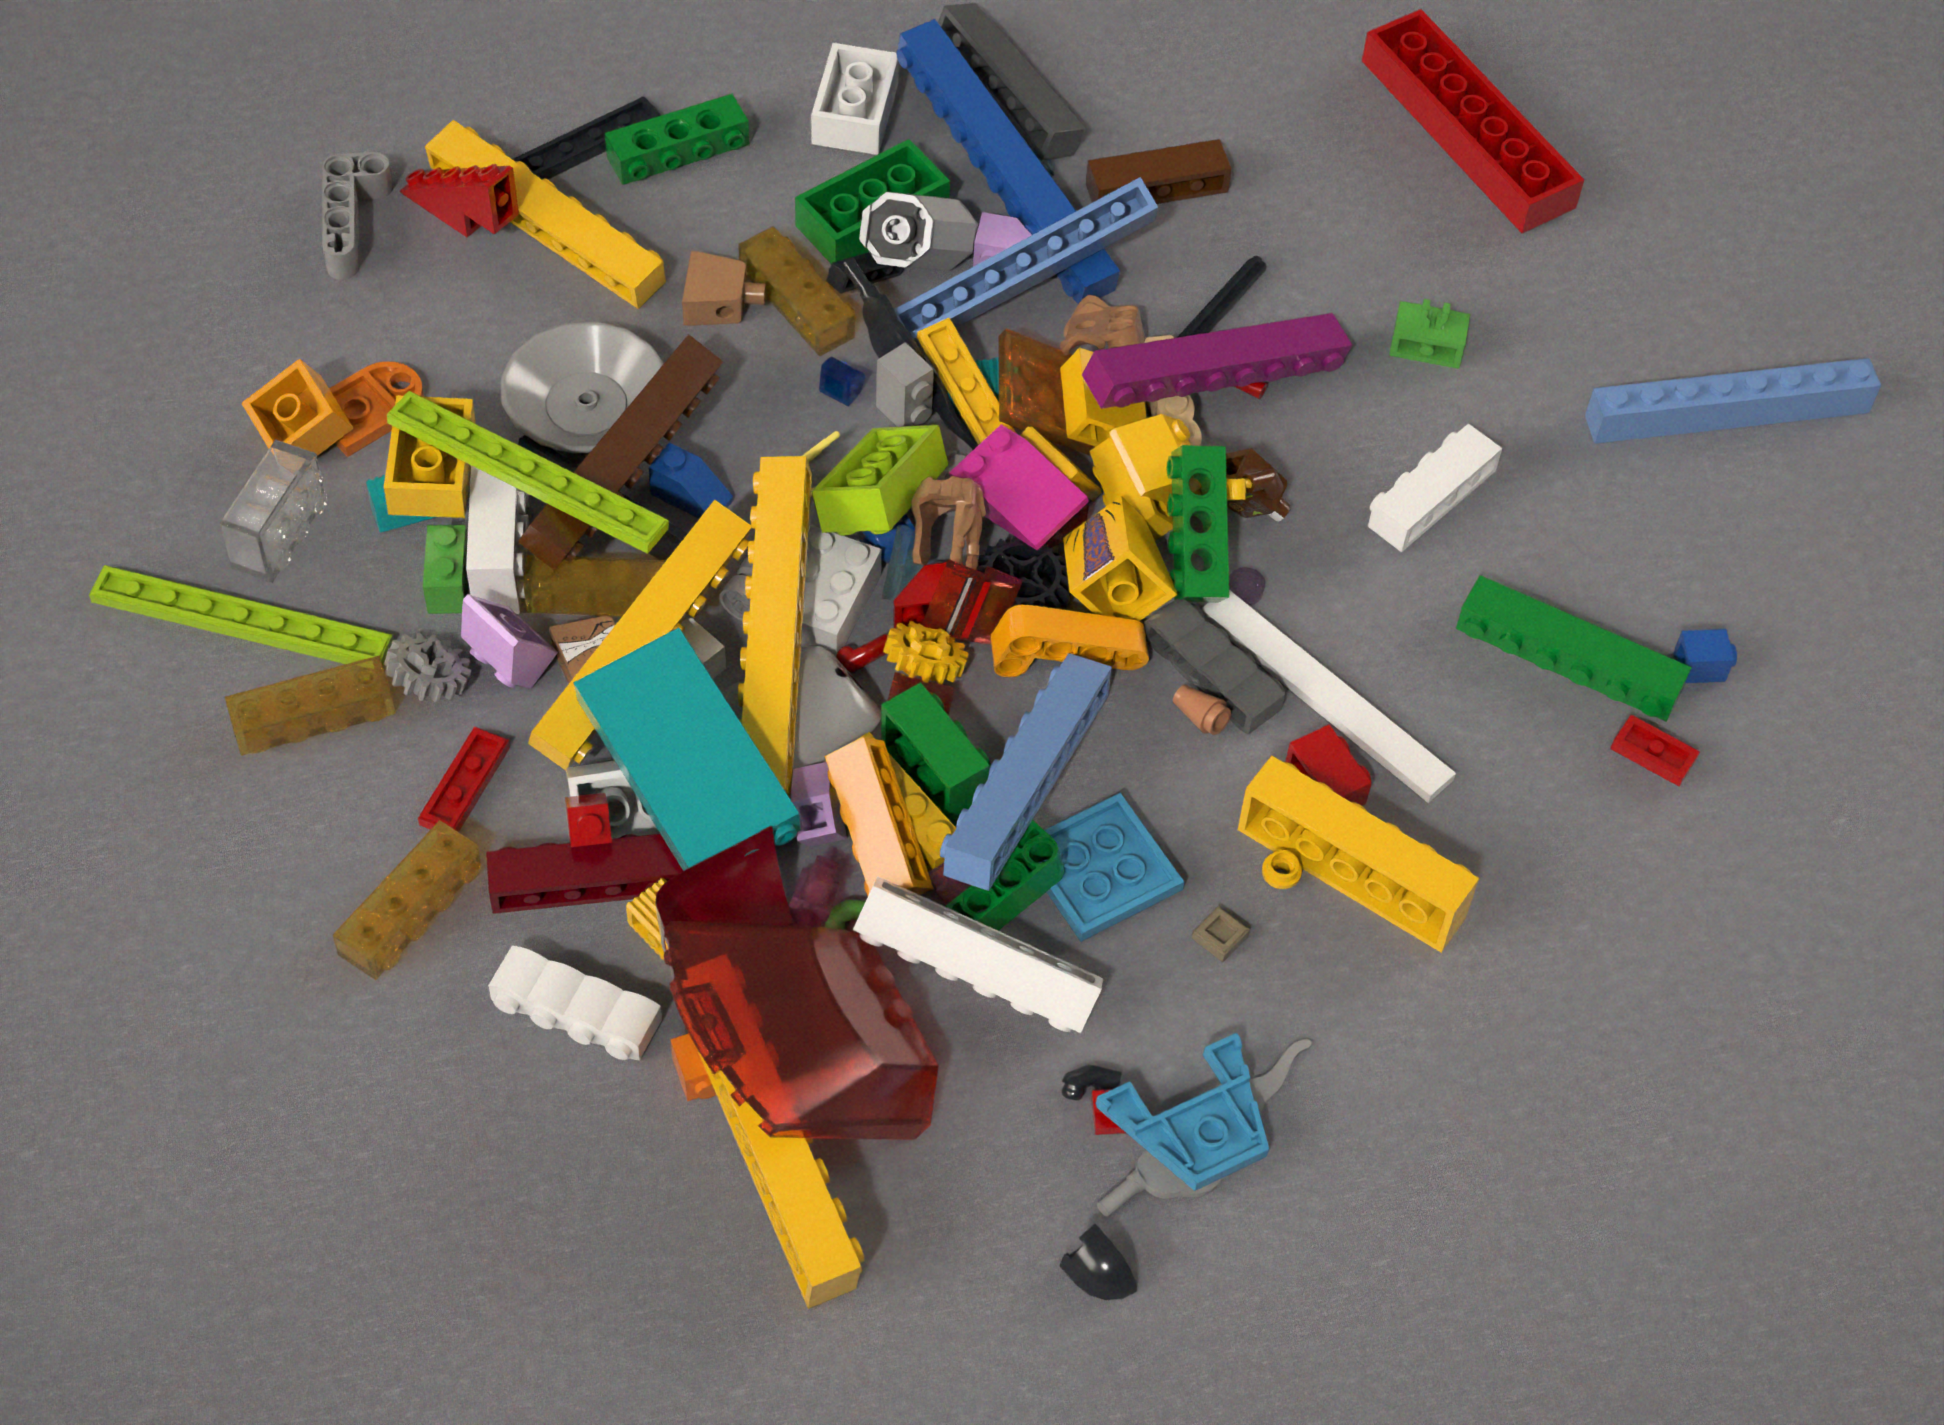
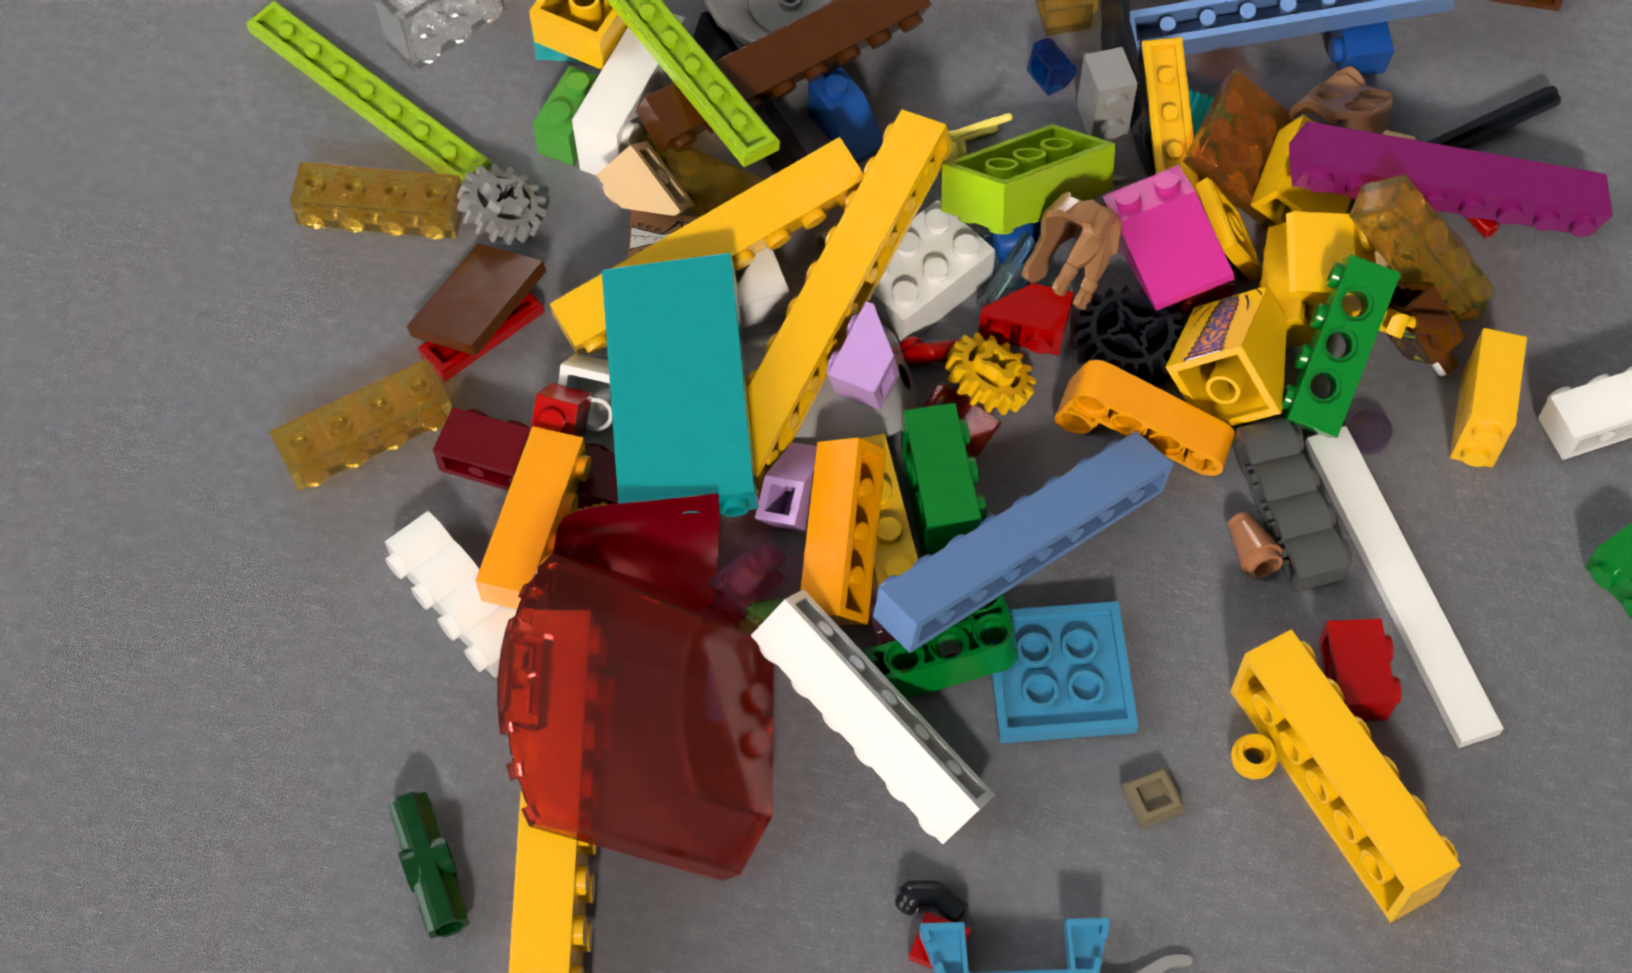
camera: 30 degrees right, 5 degrees up
(450, 755) = (476, 299): none -> reddish brown tile
(504, 642) = (585, 214): lavender slope -> none
(553, 602) = (644, 183): none -> tan slope
(616, 914) = (533, 509): none -> light orange brick
(670, 1226) = (428, 865): none -> dark green piece
(830, 678) = (865, 363): none -> lavender slope
(970, 601) = (1057, 339): clear red slope -> none
(1221, 418) = (1420, 245): none -> clear yellow brick
(1327, 523) = (1488, 398): none -> yellow brick

